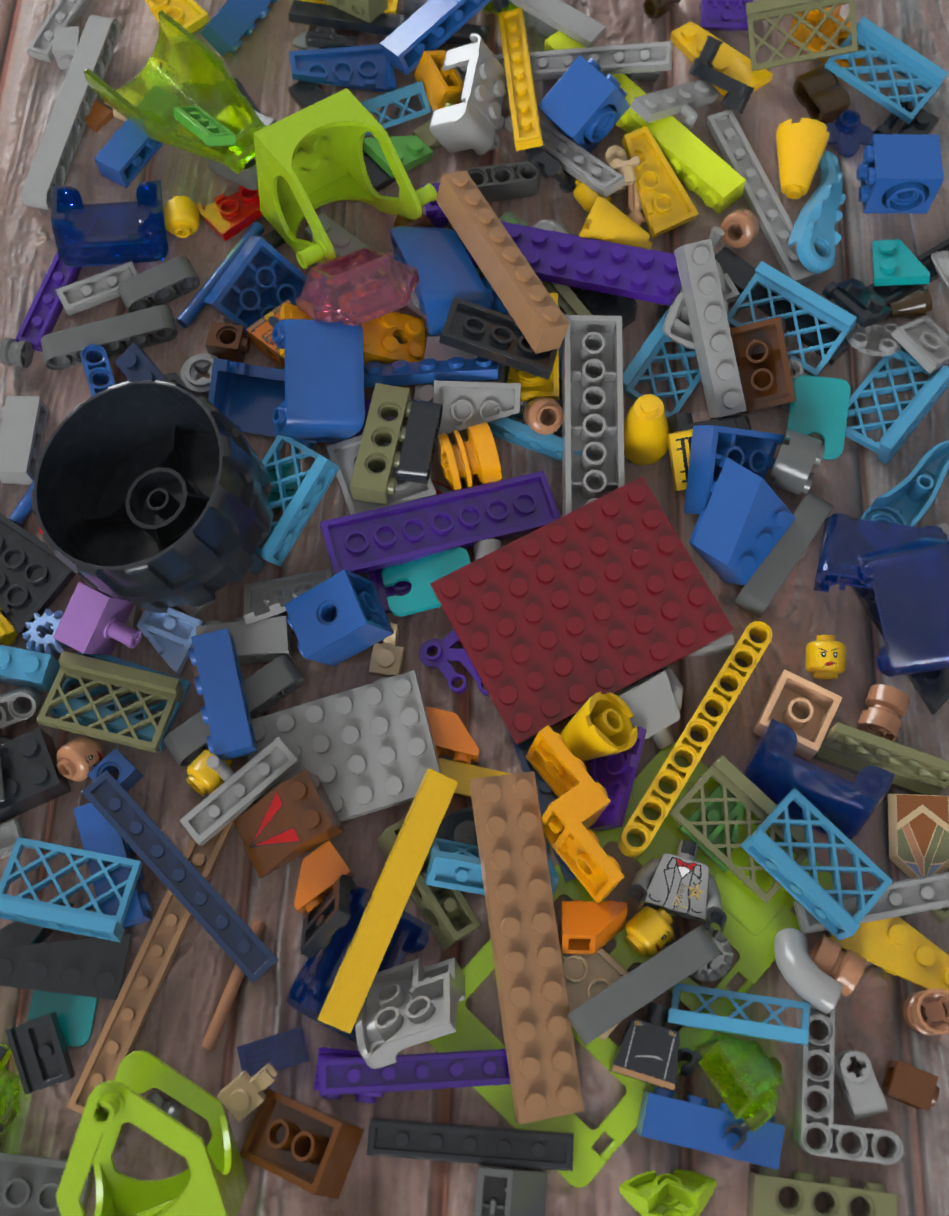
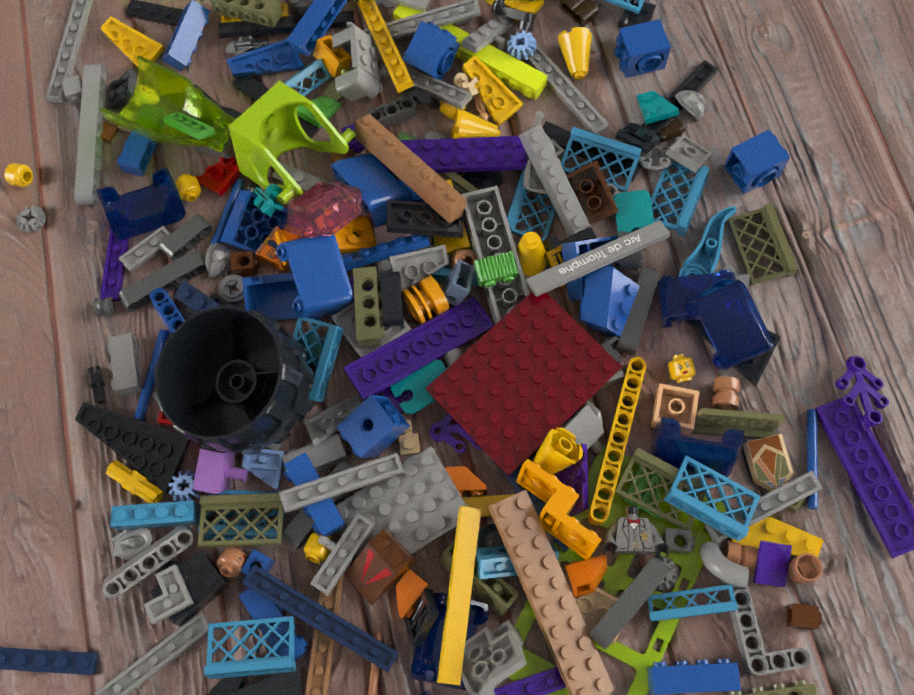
camera: 15 degrees left, 0 degrees up
(132, 60) = (122, 89): none -> black plate
(192, 328) = (218, 260): none -> light grey hat
(265, 686) = (341, 482): none -> light grey tile
(282, 257) = (267, 201): none -> teal hips
(514, 455) = (454, 290): none -> sand blue torso
(584, 436) = (495, 269): none -> bright green brick
(648, 1050) = (643, 641): black torso -> none
(649, 931) = (623, 568): yellow head -> none
(720, 128) = (521, 45): none -> light blue gear
(723, 593) = (607, 345): none -> dark grey bracket
(732, 904) = (685, 535): none -> dark grey brick
(740, 228) = (552, 107): nougat head -> none
(742, 458) = (597, 258): none -> light grey tile
(742, 1077) = (704, 641): clear neon green torso -> none
(819, 218) = (600, 88): dark azure animal -> none
(849, 133) = (602, 30): clear blue plate -> none
(858, 1088) = (774, 627): light grey piece -> none
(883, 990) = (772, 563): none -> dark purple piece

